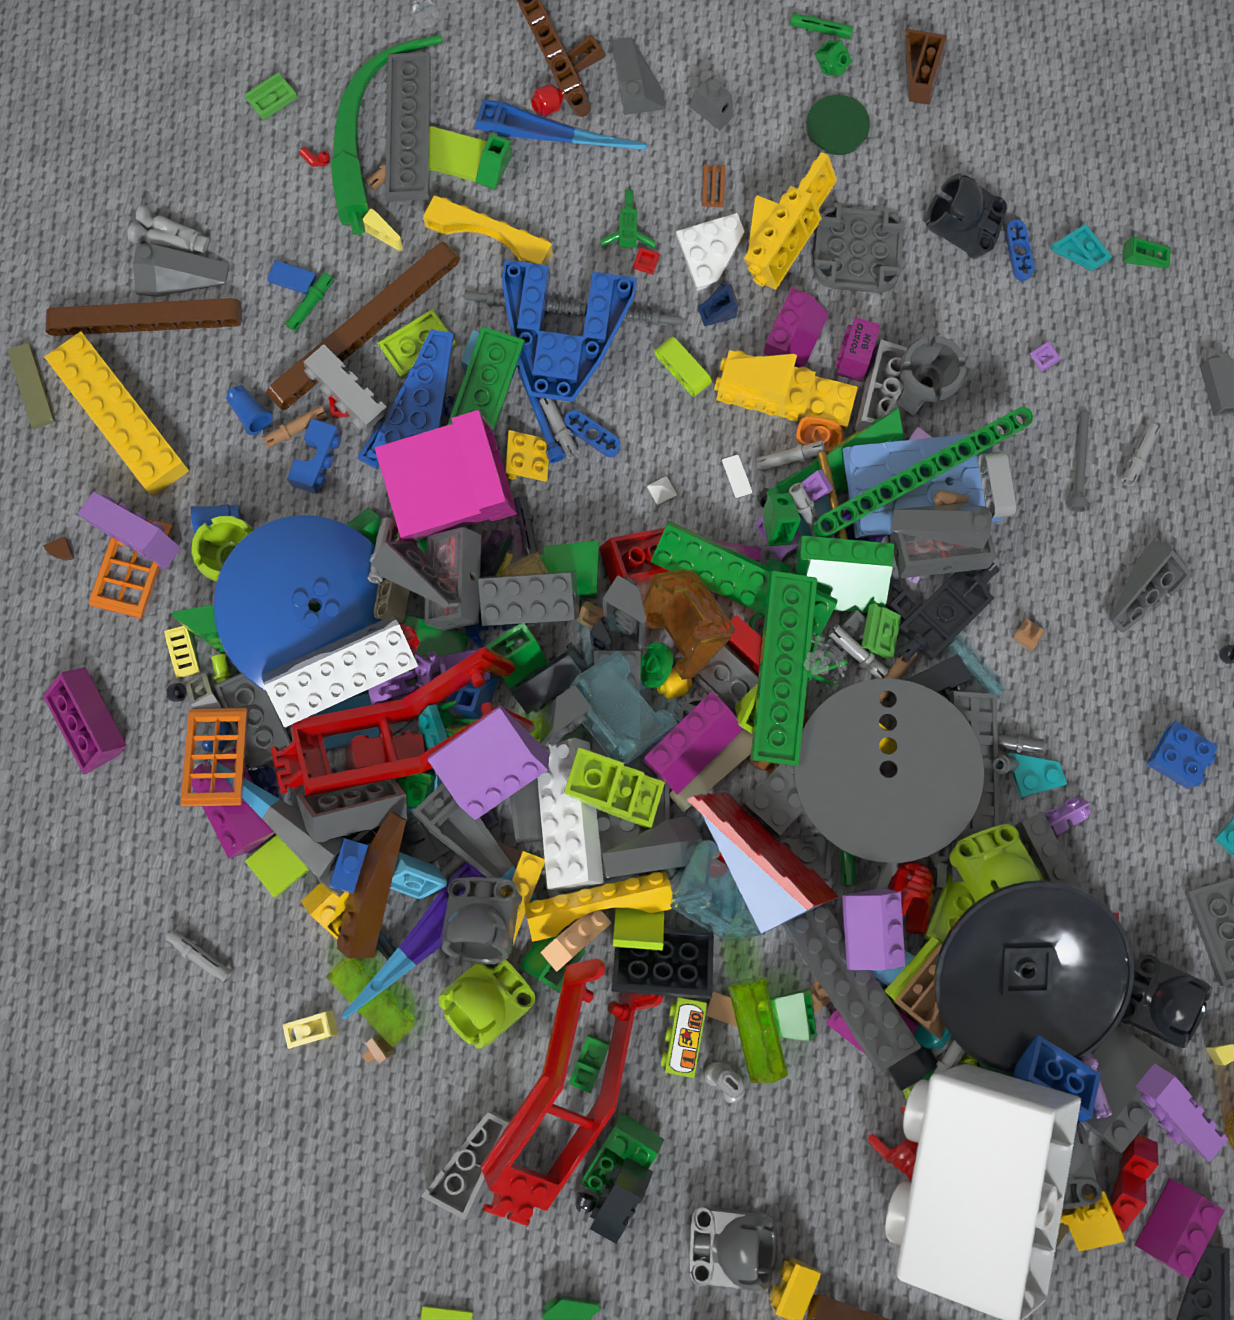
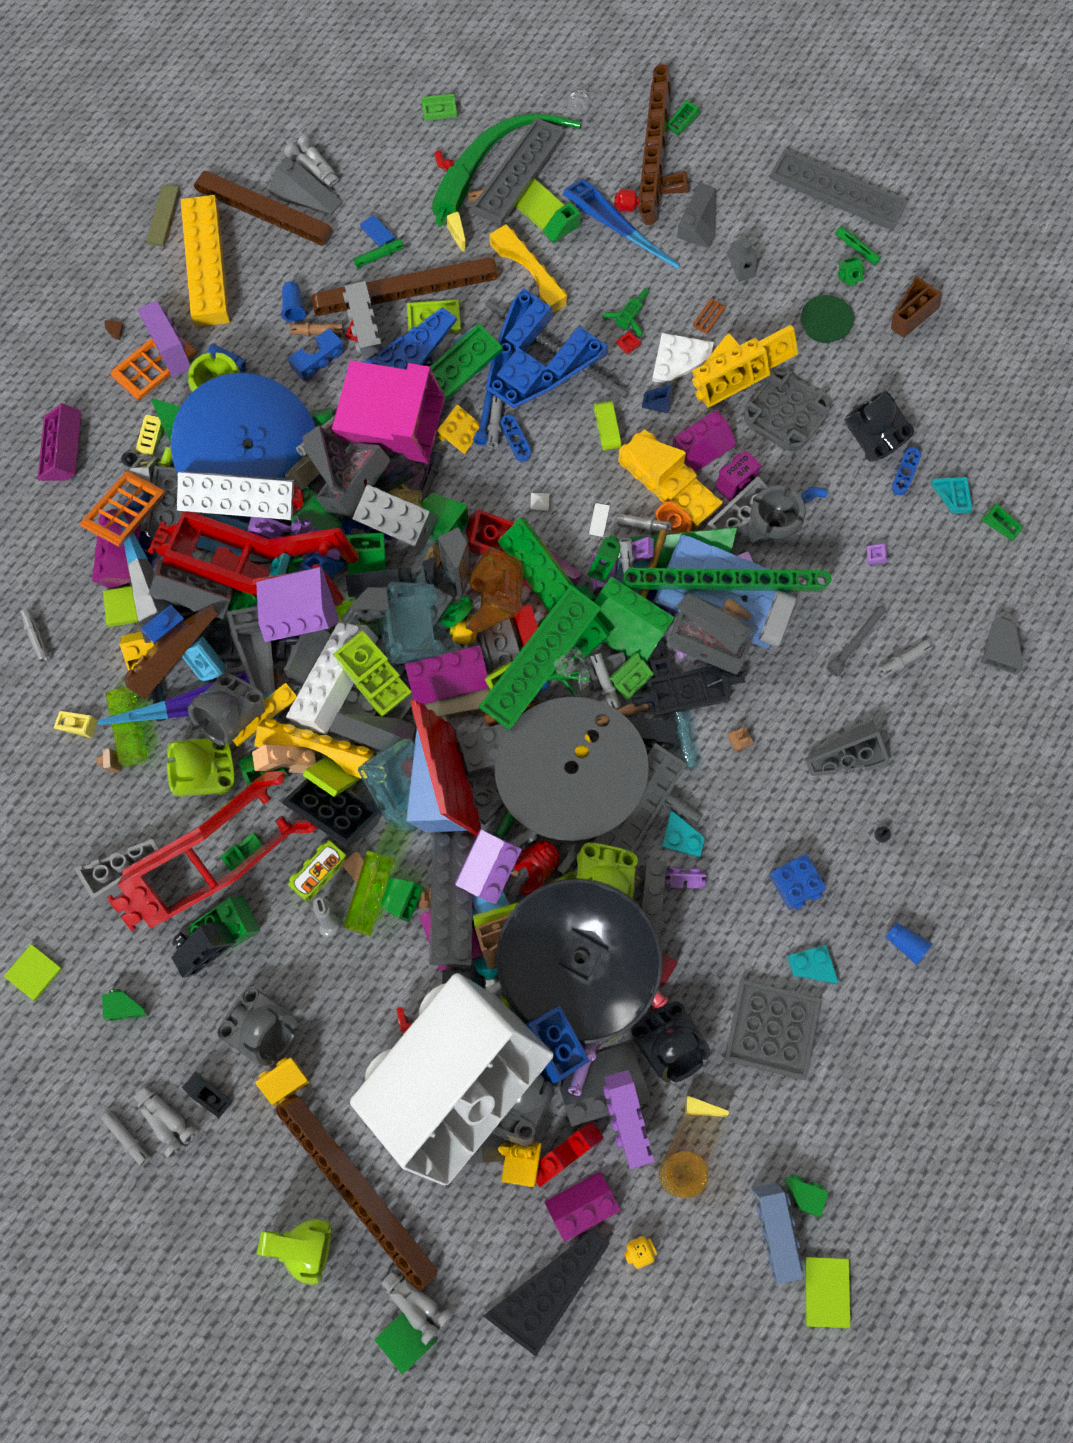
camera: 30 degrees right, 5 degrees down
(939, 324) = (812, 492): none -> blue arm
(1004, 764) = (659, 813): dark grey pin -> none

